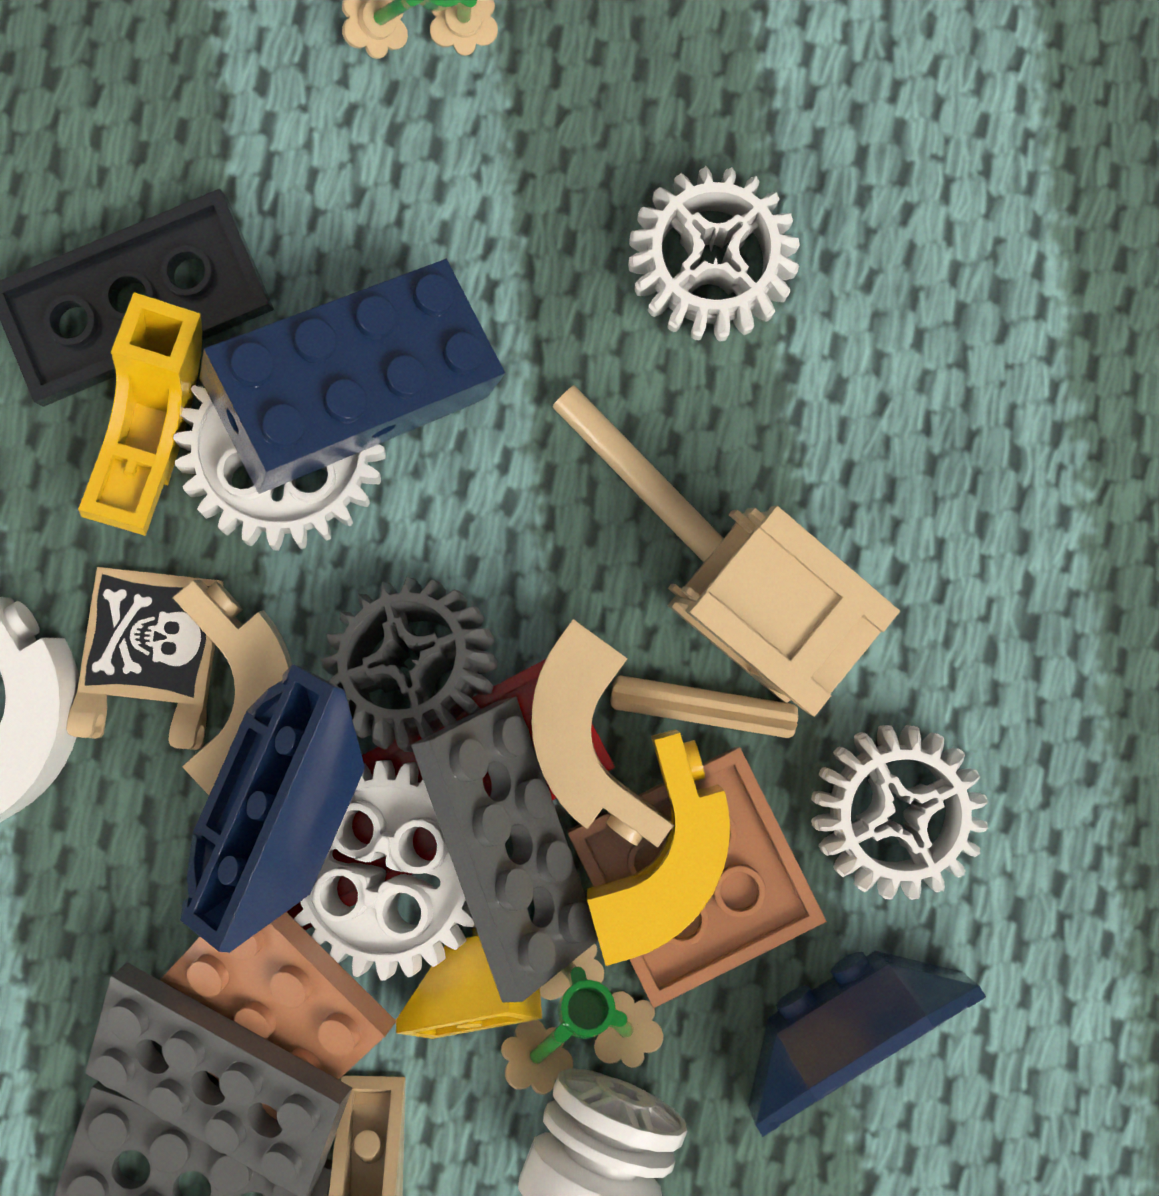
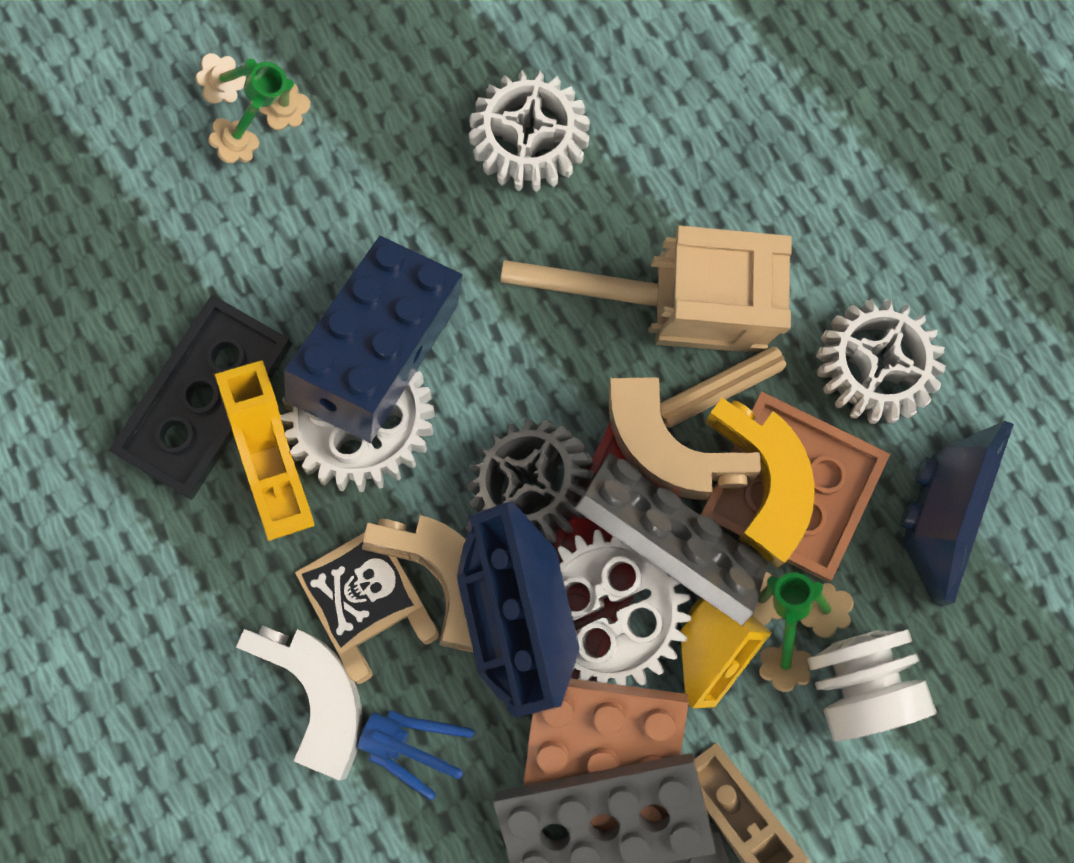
camera: 35 degrees left, 10 degrees down
(62, 817) = (386, 739): none -> blue plant

